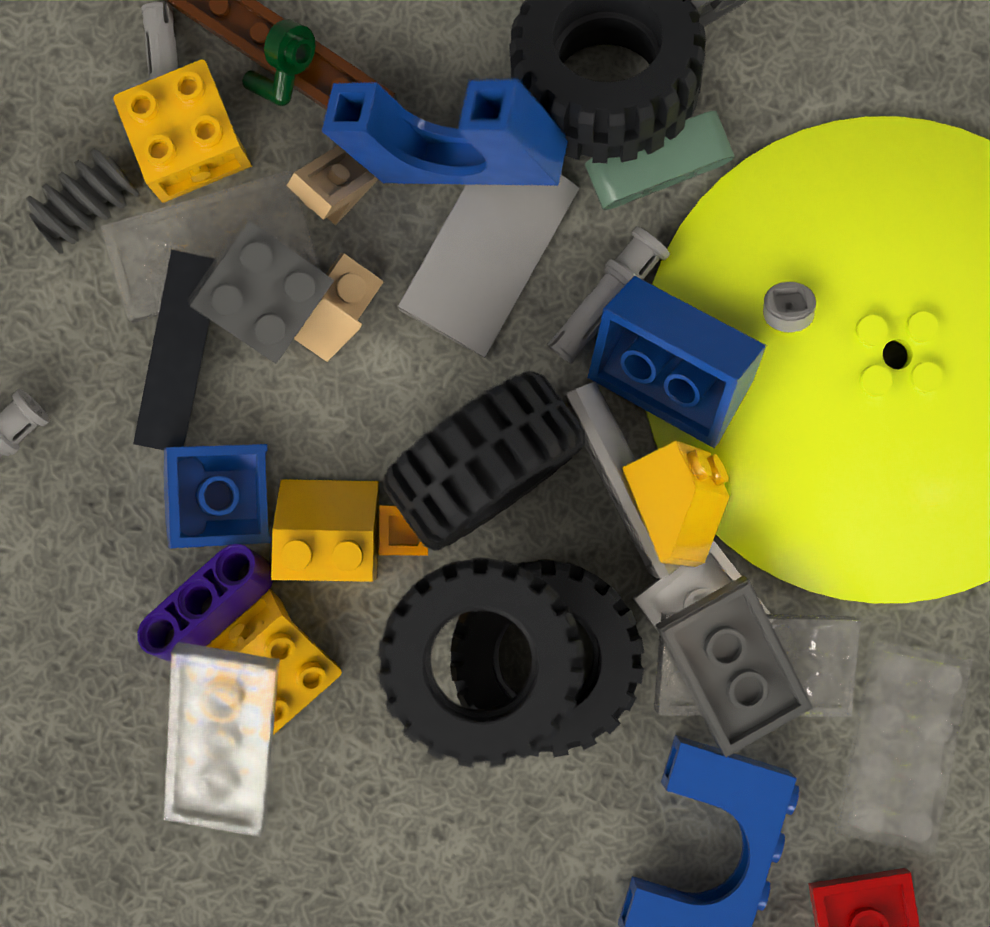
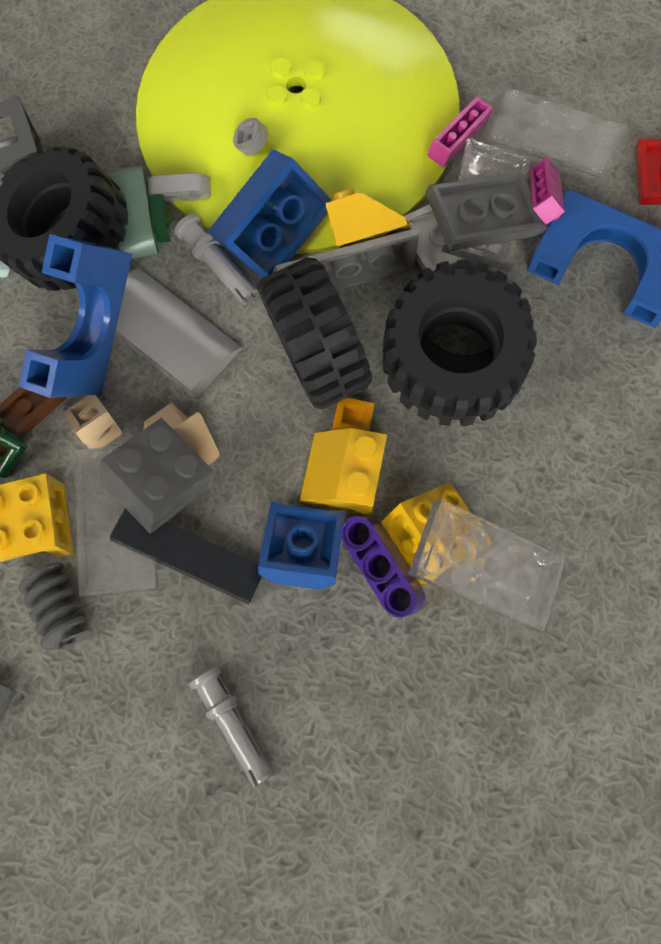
camera: 75 degrees left, 15 degrees down
(655, 202) = (160, 218): none -> dark green tile
(701, 219) = (180, 187): none -> light grey beam
(788, 748) = (546, 191): none -> dark pink piece
(873, 608) = (454, 136): none -> dark pink piece

